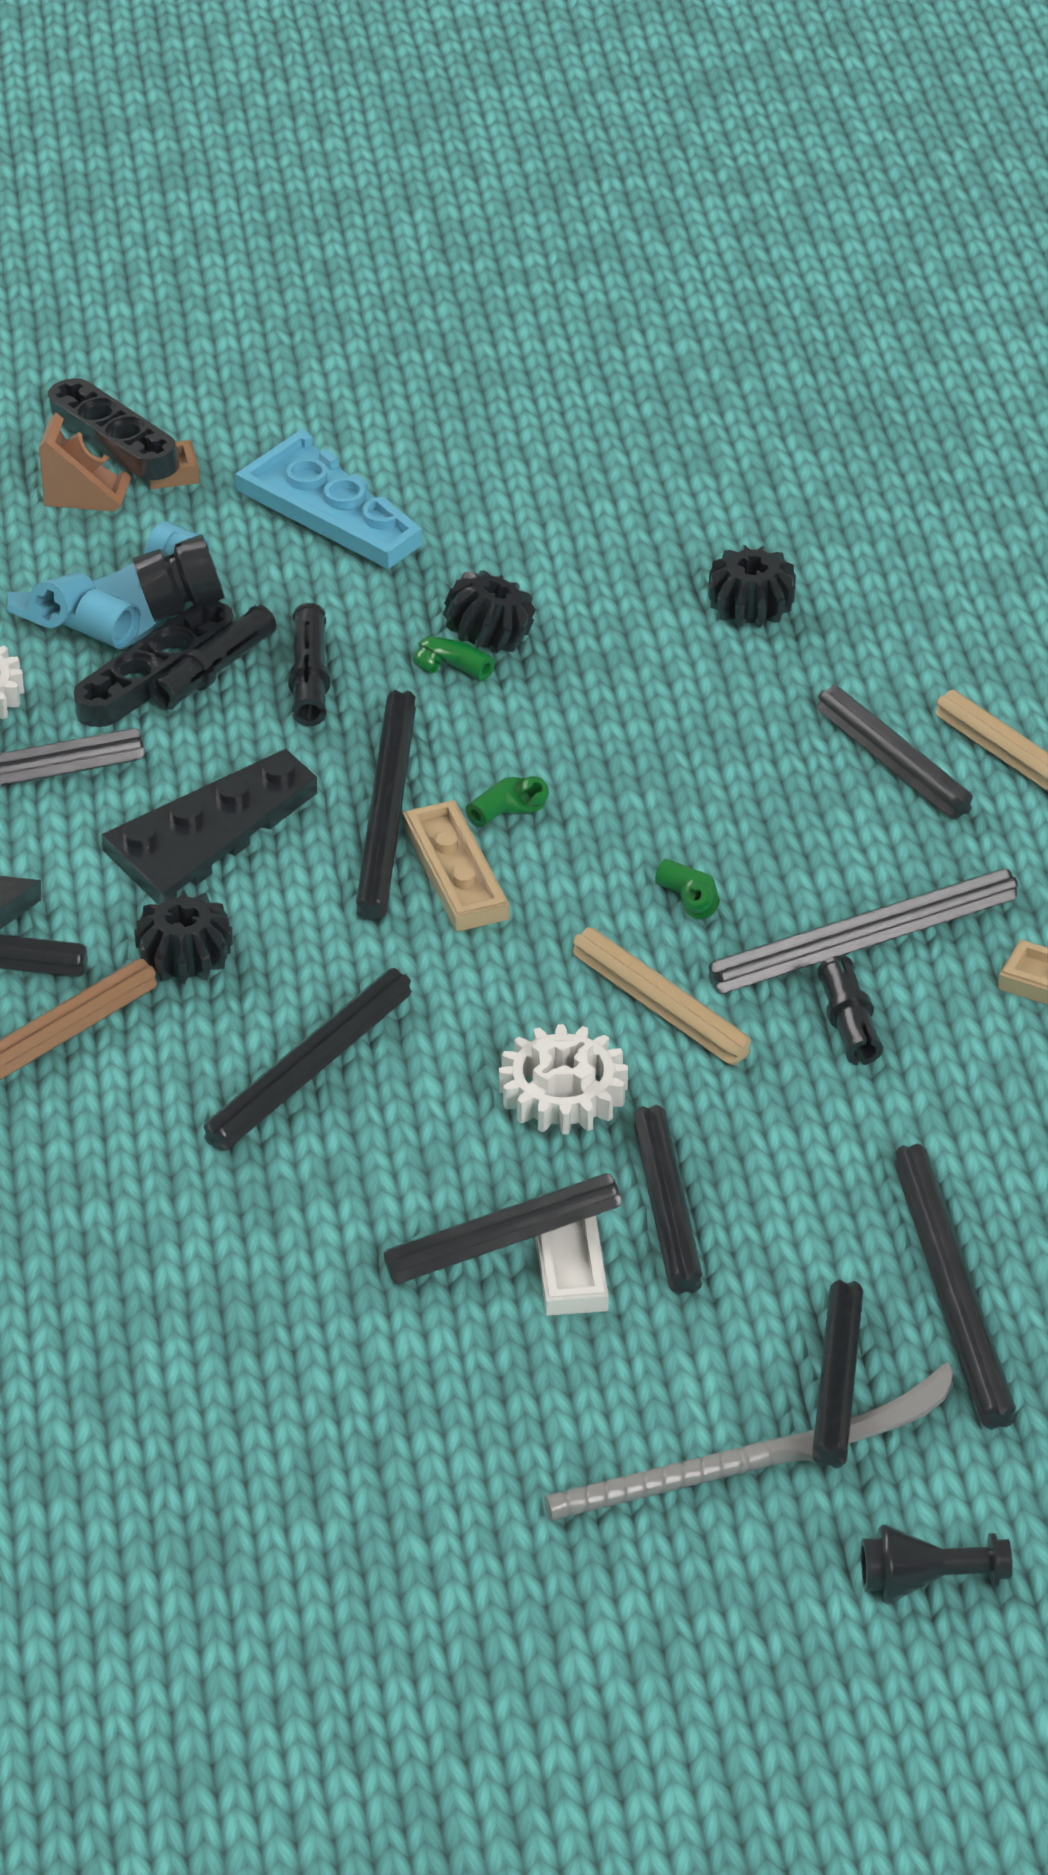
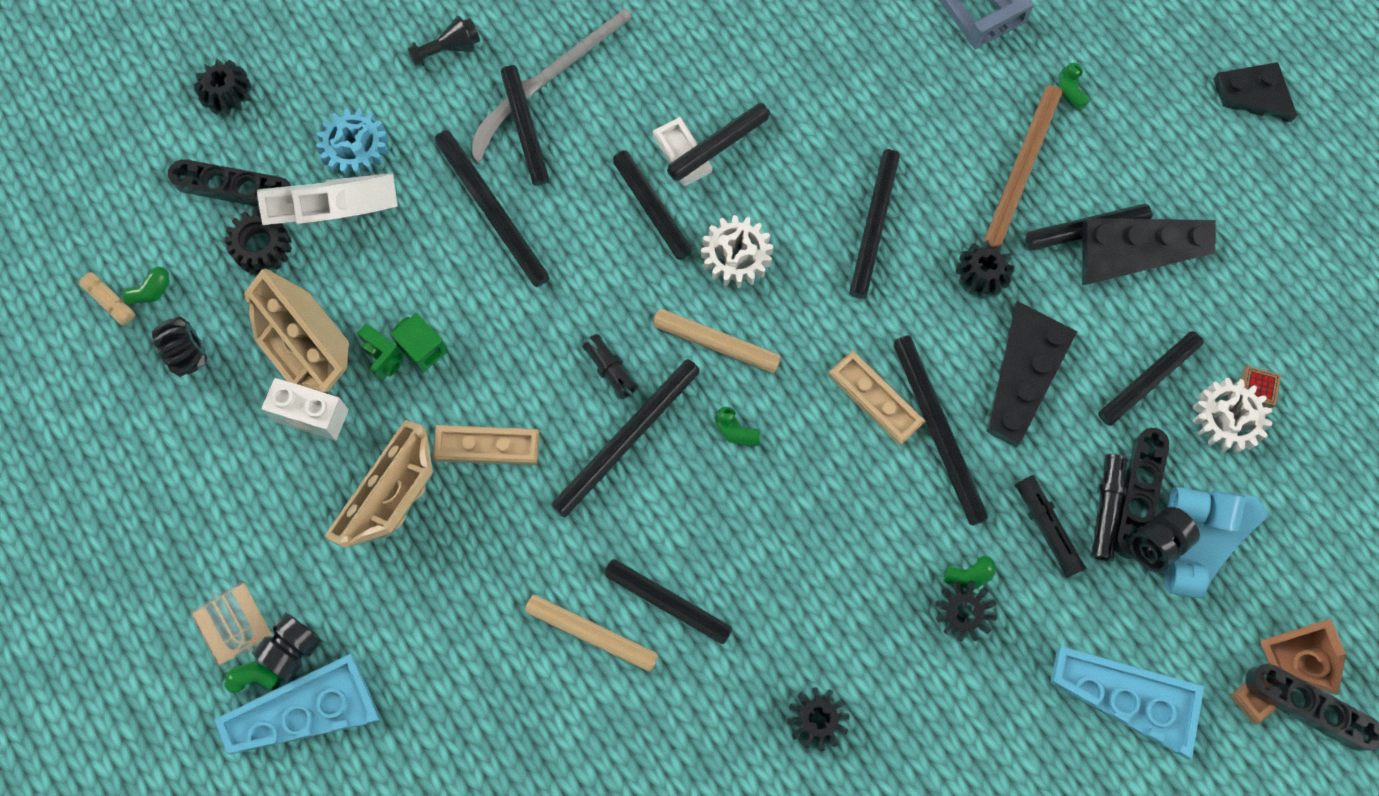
camera: 155 degrees right, 30 degrees up
(508, 796) = (873, 463): green arm -> none

